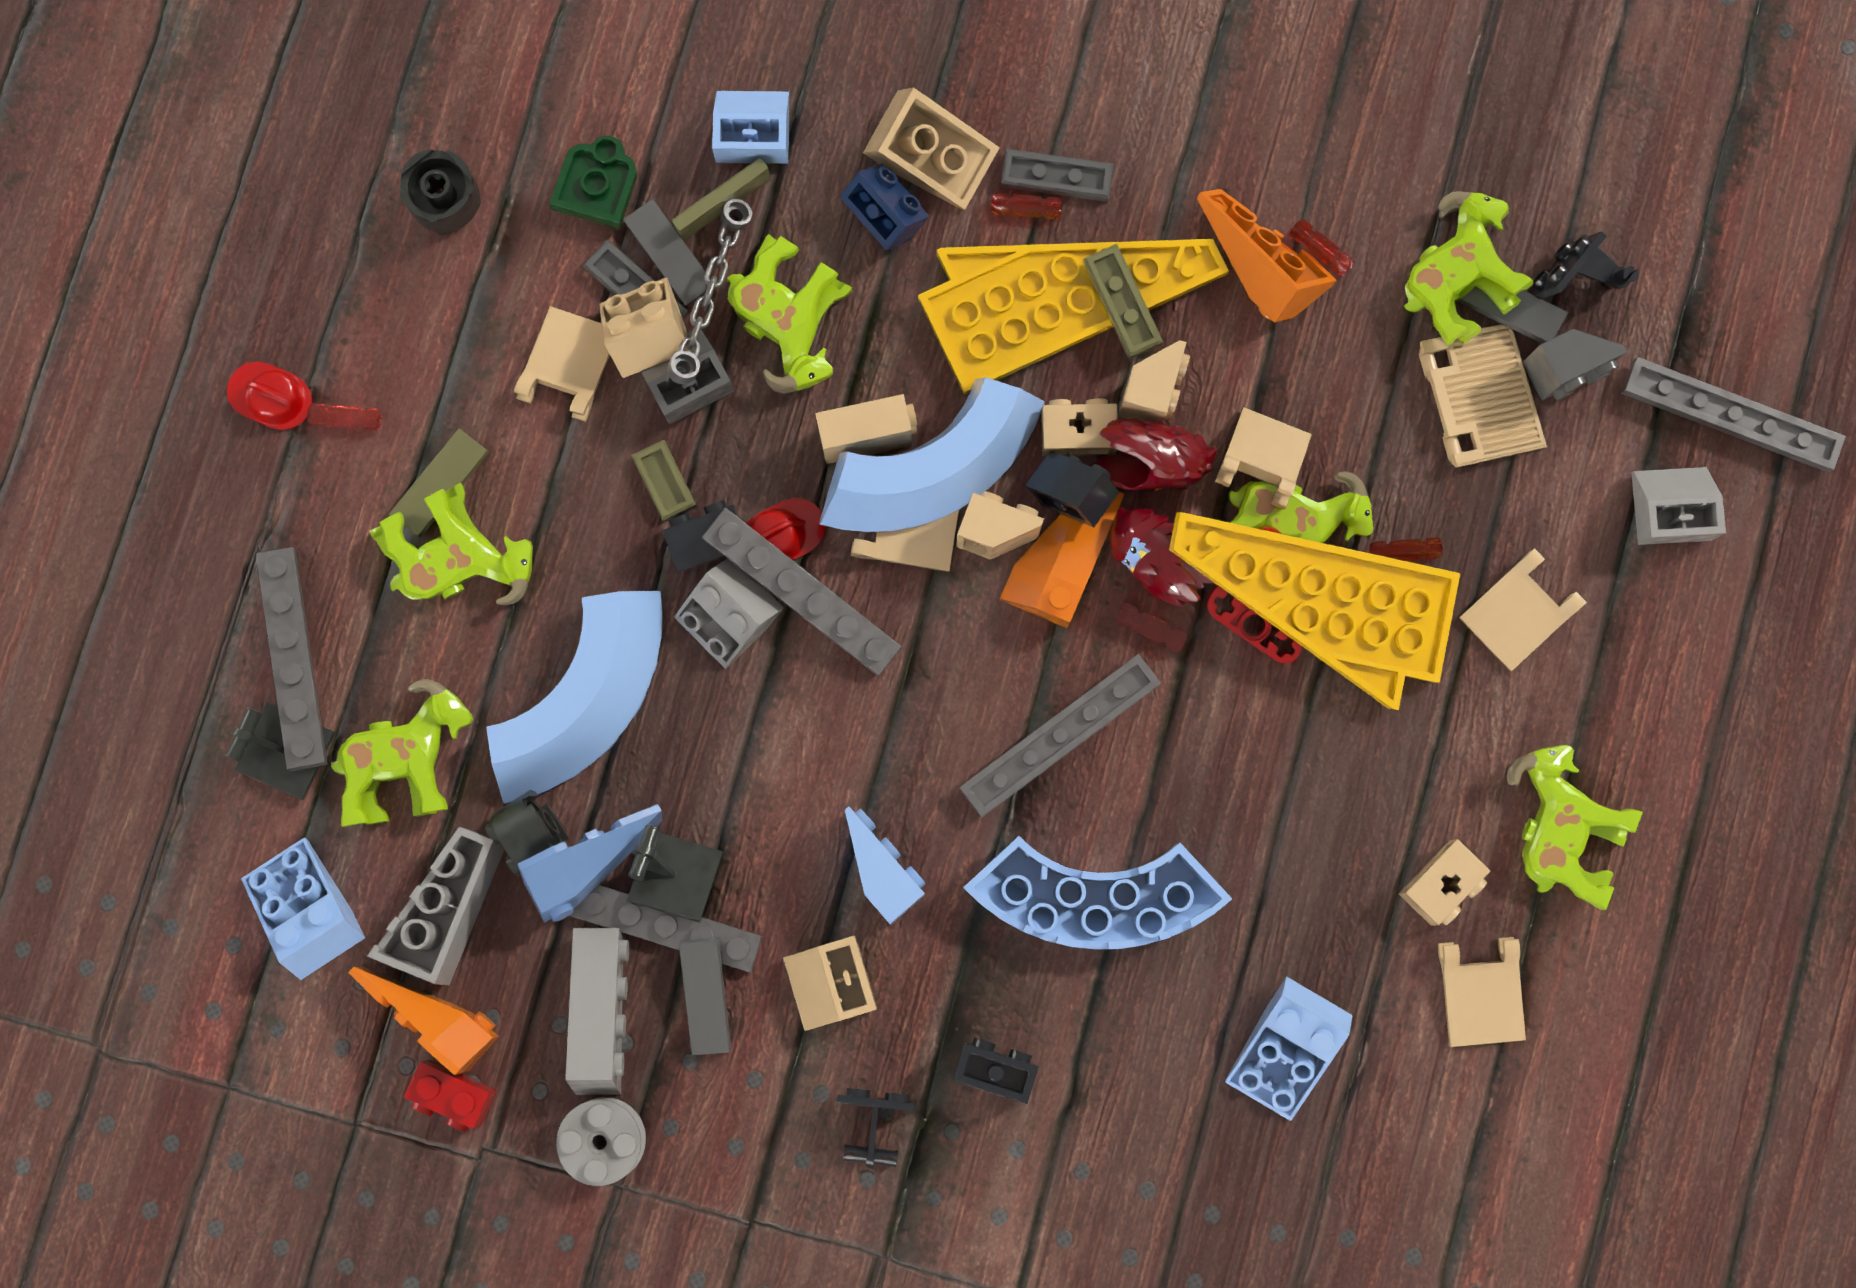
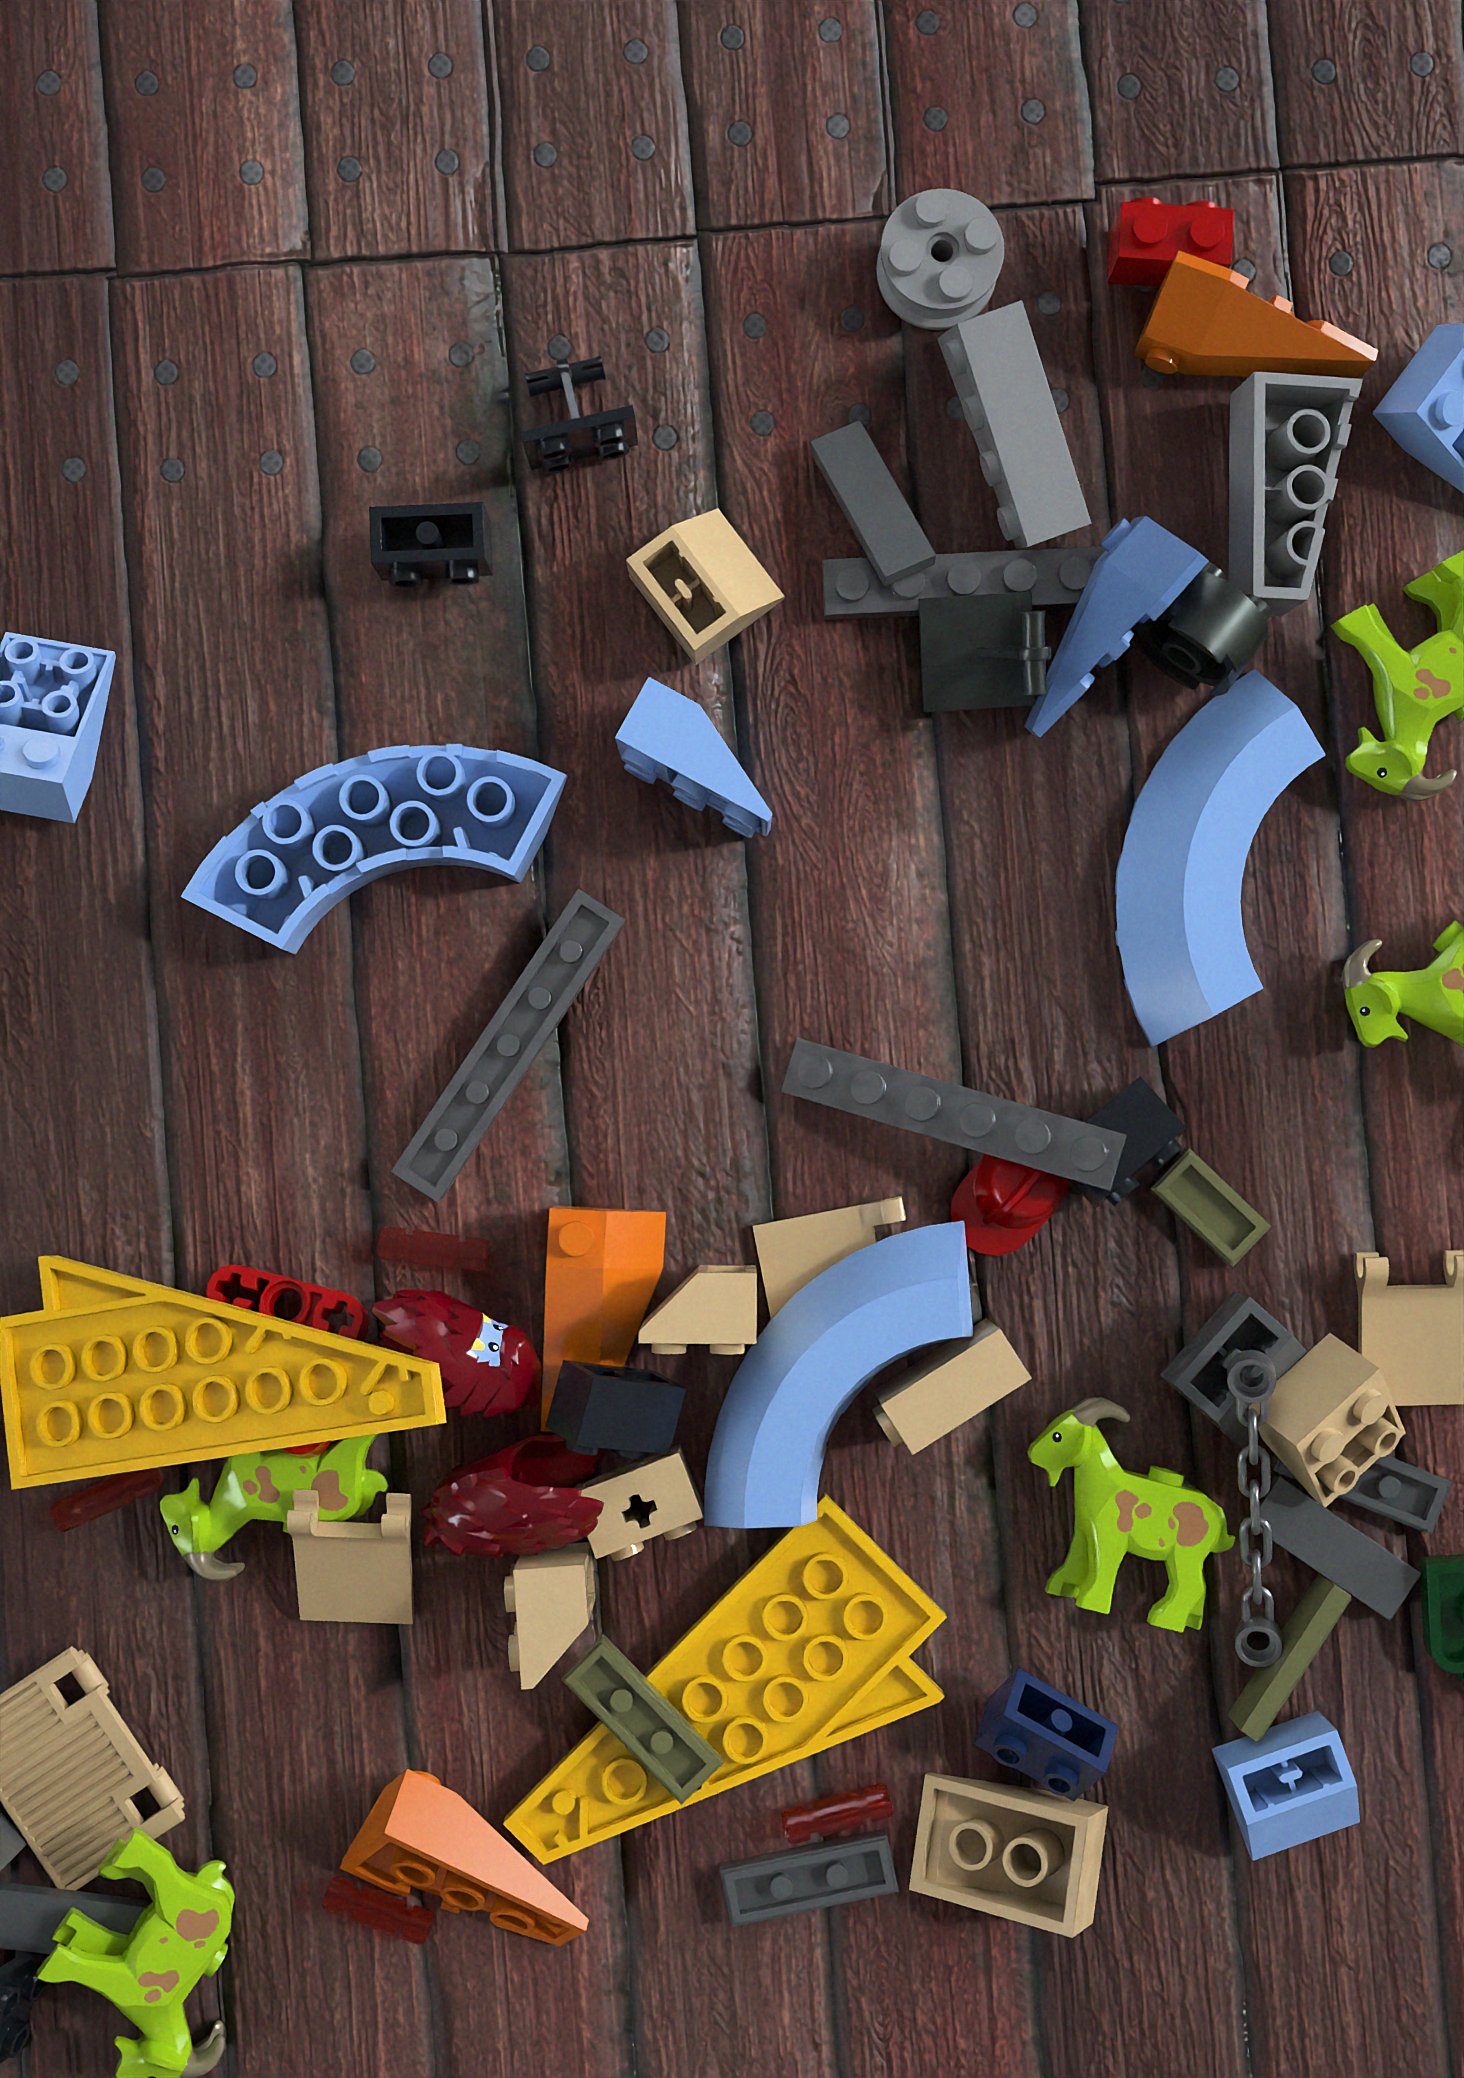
camera: 160 degrees right, 5 degrees up
(728, 612) = (1045, 1048): light grey slope -> none

